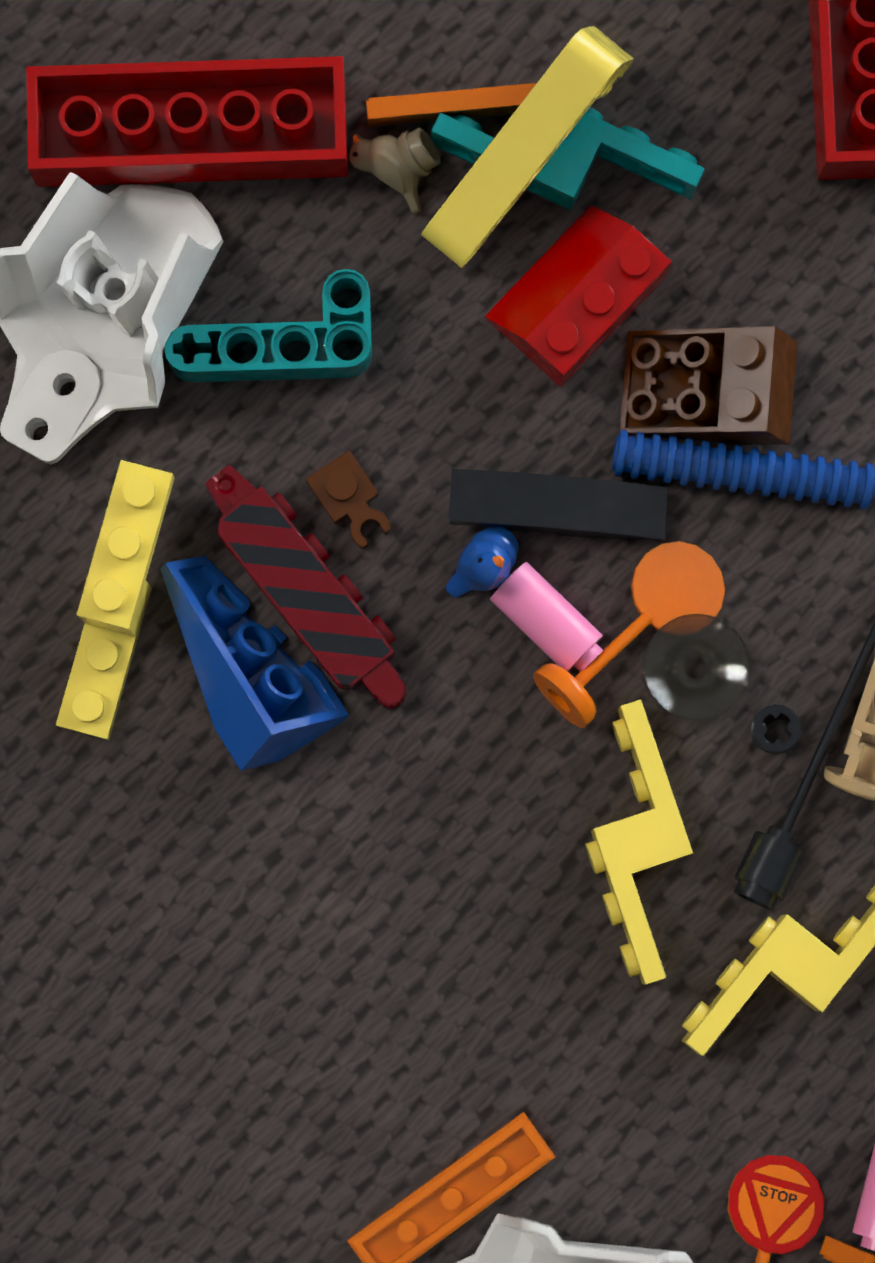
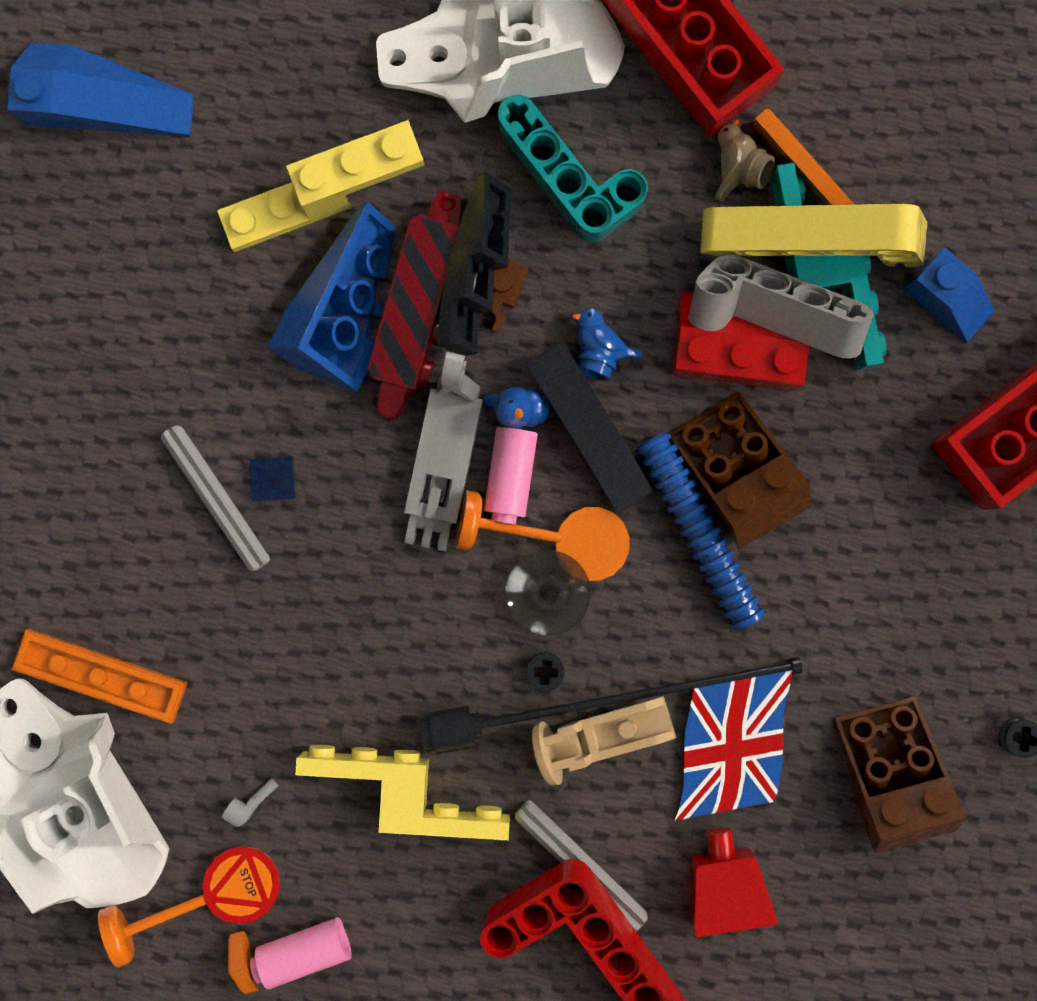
camera: 60 degrees right, 5 degrees up
(300, 489) = (476, 253): none -> black slope
(352, 942) = (215, 498): none -> light grey axle
(375, 868) = (272, 479): none -> clear blue tile
(480, 672) = (444, 453): none -> light grey hinge
(482, 436) = (599, 346): none -> blue animal
(572, 227) = (779, 304): none -> light grey beam
(638, 842) = (404, 636): light yellow bracket -> none
(682, 53) = (951, 294): none -> blue slope
(700, 1151) = (239, 813): none -> light grey hand

